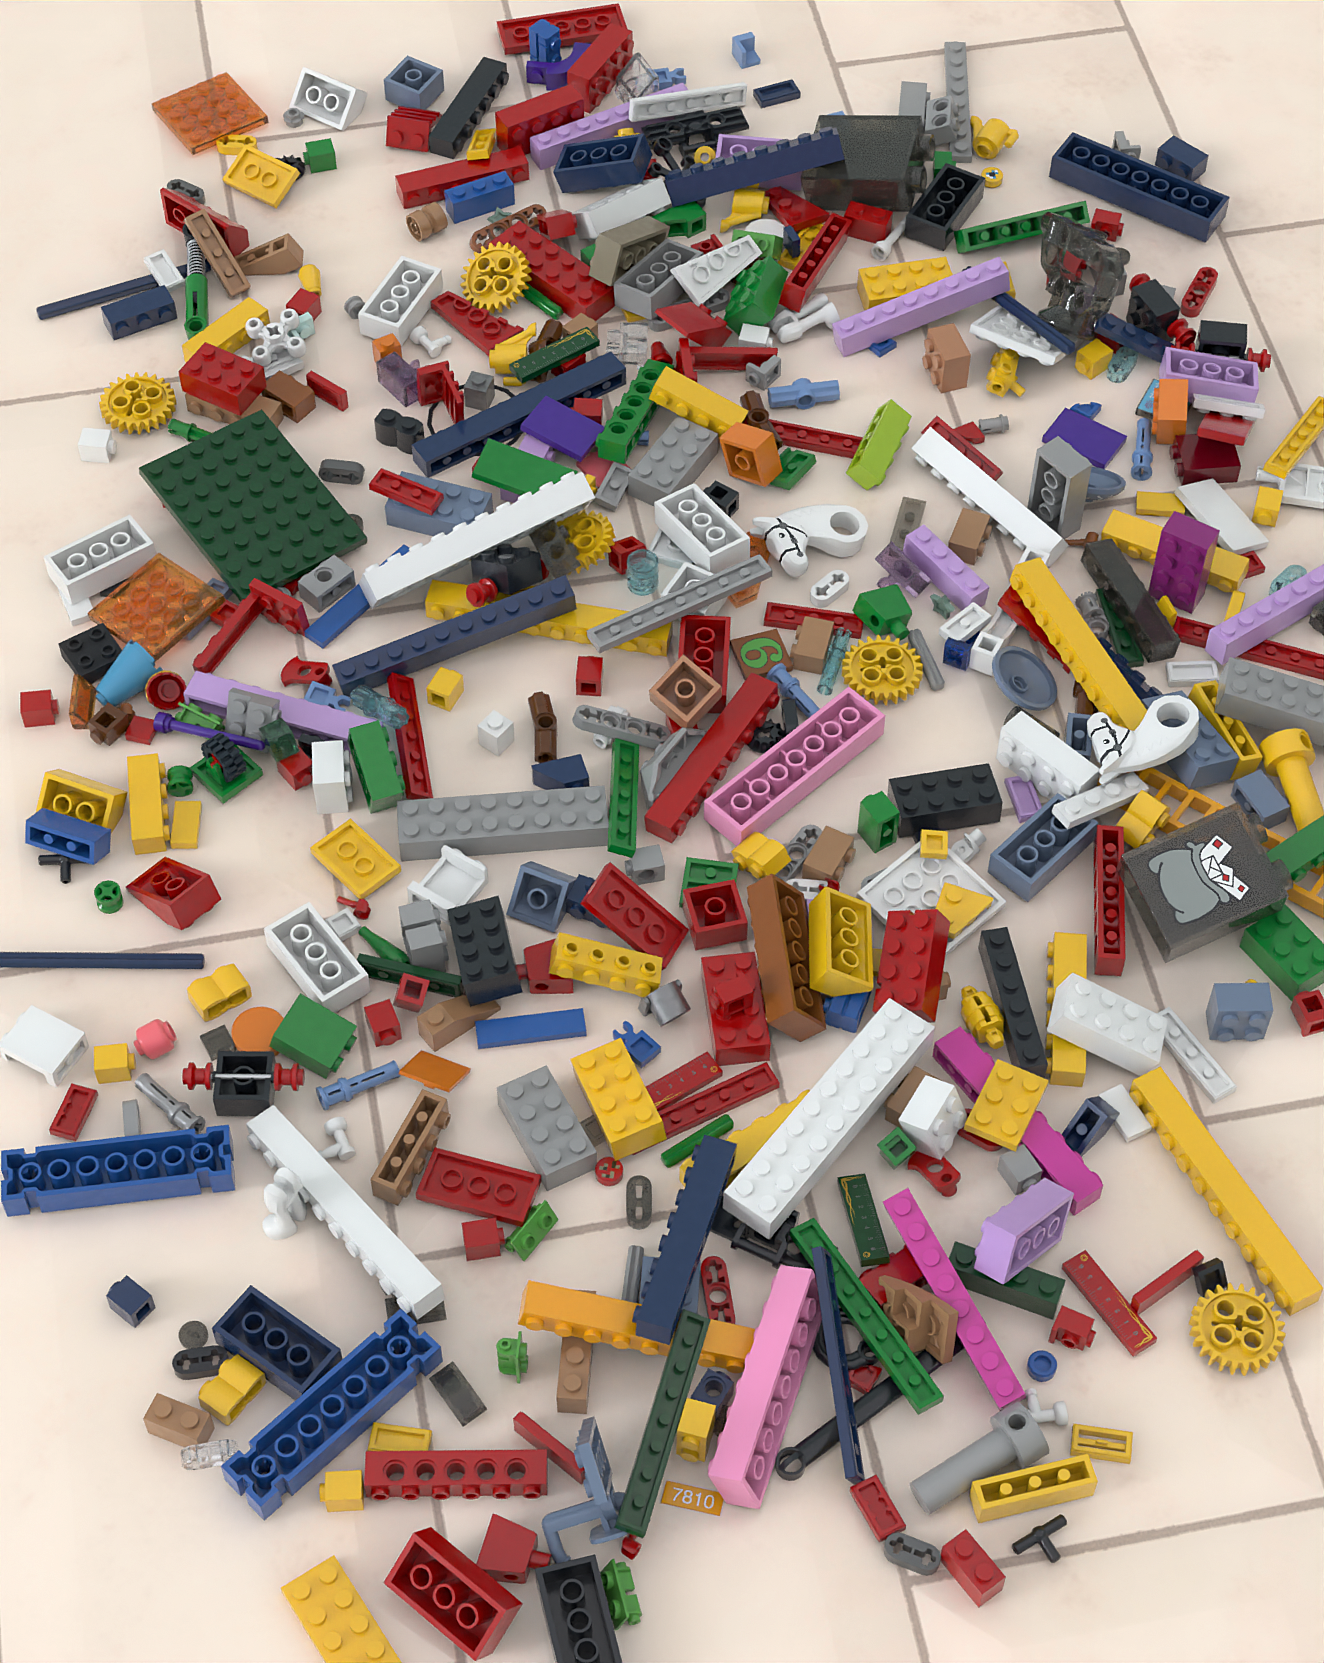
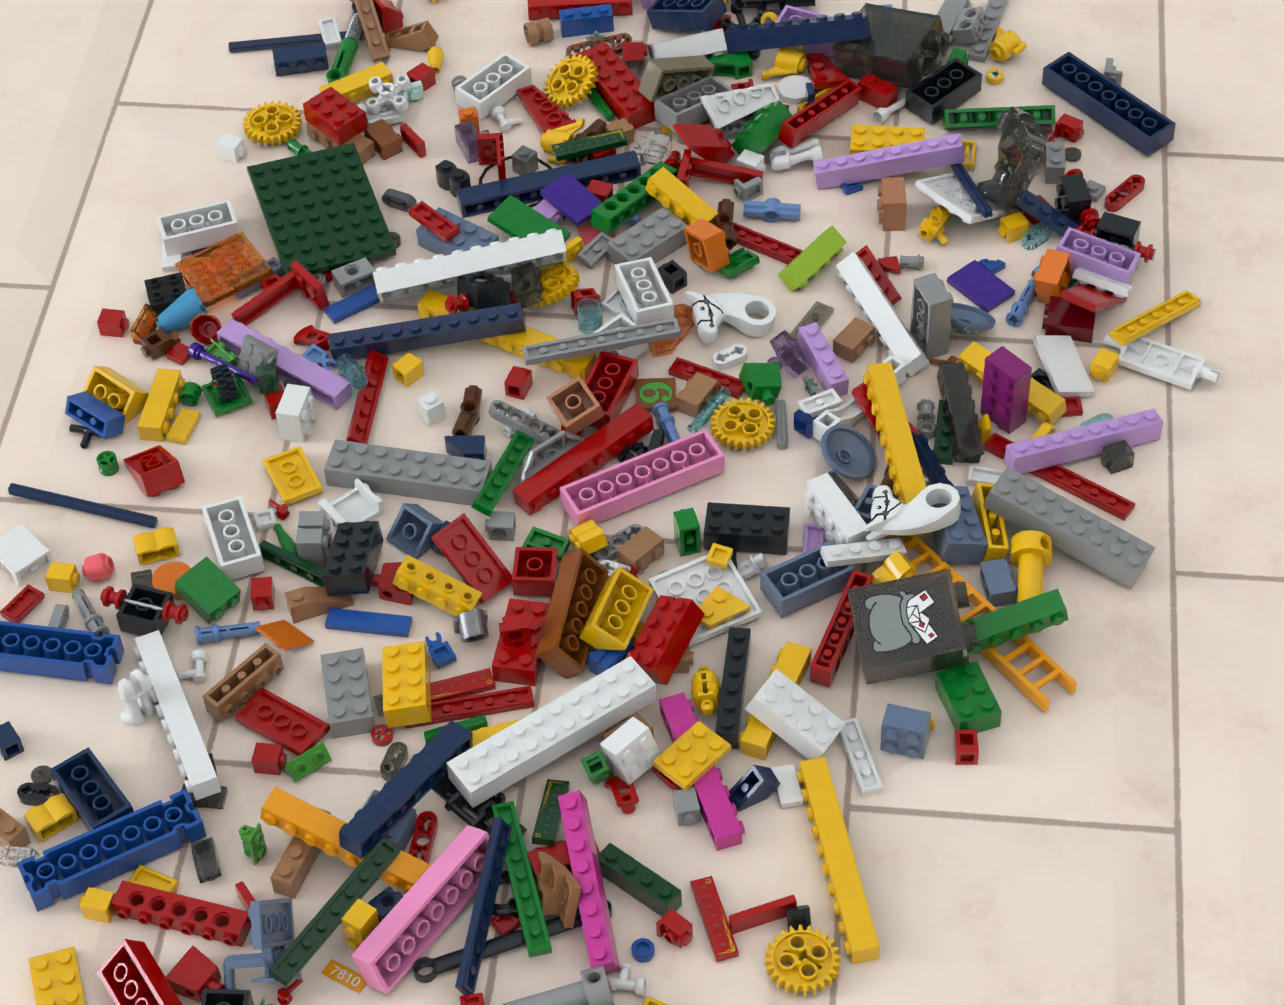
camera: 20 degrees right, 5 degrees down
(375, 766) = (328, 410): green brick -> none
(411, 993) = (289, 575): red brick -> none
(767, 243) = (788, 94): bright green brick -> none
(1023, 1230) = (660, 845): lavender brick -> none
(1158, 504) = (1019, 346): yellow tile -> none
(1181, 159) = (1154, 89): dark blue brick -> none

